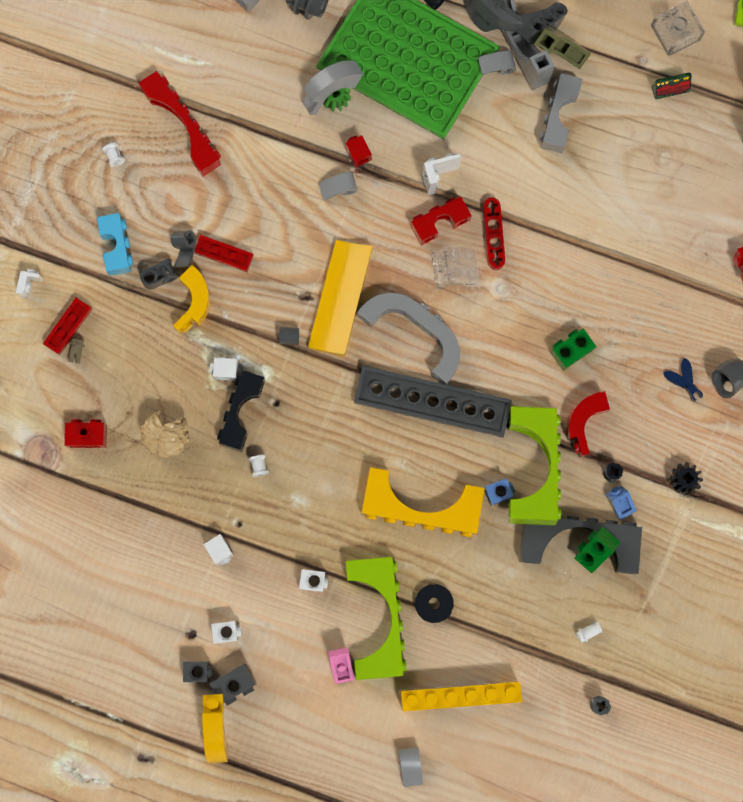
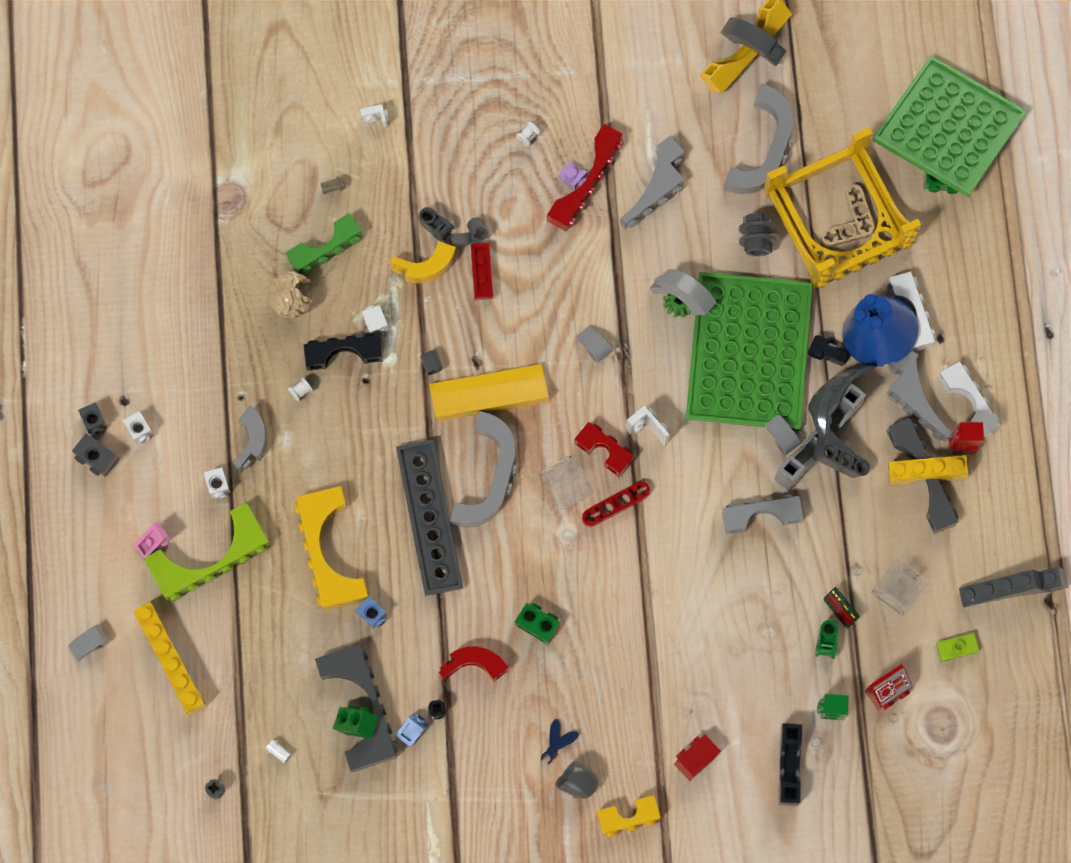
camera: 70 degrees right, 5 degrees down
(67, 326) = (352, 167): red plate -> none
(86, 434) = (260, 228): red brick -> none
(113, 228) = (433, 183): medium azure arch -> none
(133, 407) = (305, 258): none -> bright green arch
(173, 134) = (572, 176): none -> lavender bracket
(213, 729) = (45, 453): yellow arch -> none
(217, 58) = (663, 182): none -> light grey arch
(219, 550) = (208, 389): white brick -> none
(283, 523) = (257, 439): none -> light grey arch
(358, 151) = (634, 345): red brick -> none
(444, 597) = (240, 589): black tile -> none
(541, 426) = (373, 653): lime arch -> none
(563, 46) = (828, 483): olive arch -> none
(690, 473) = (468, 782): black gear -> none
(696, 110) = (827, 641): none -> green piece

